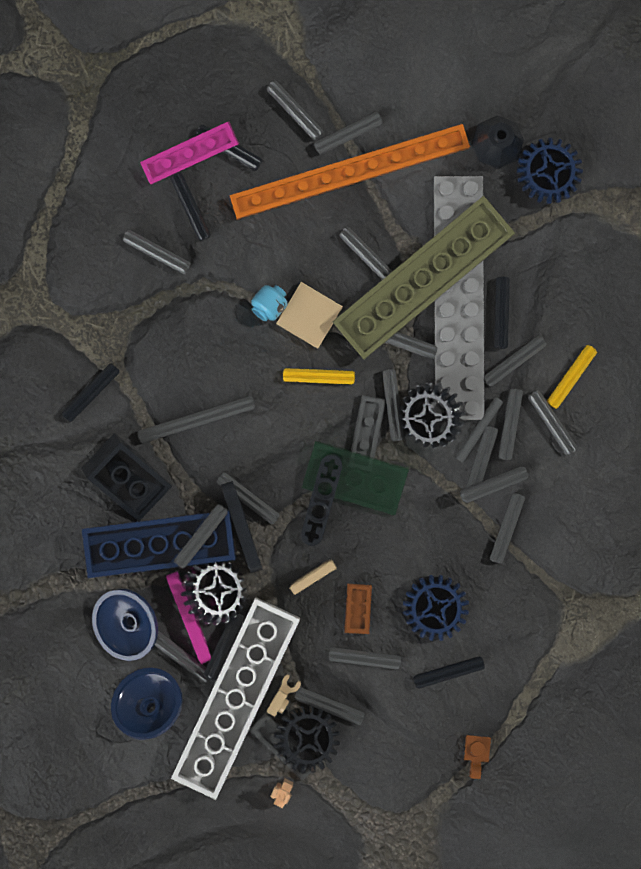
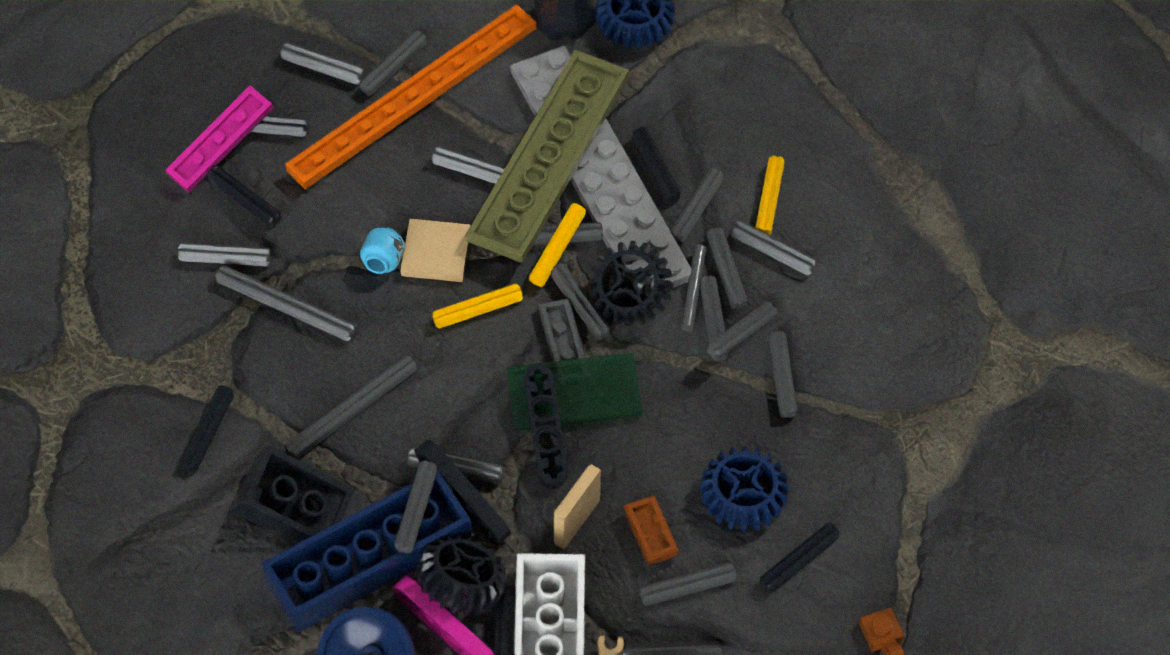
camera: 25 degrees left, 30 degrees down
(184, 313) = (285, 303): none -> dark grey axle
(396, 355) = (557, 245): none -> yellow axle

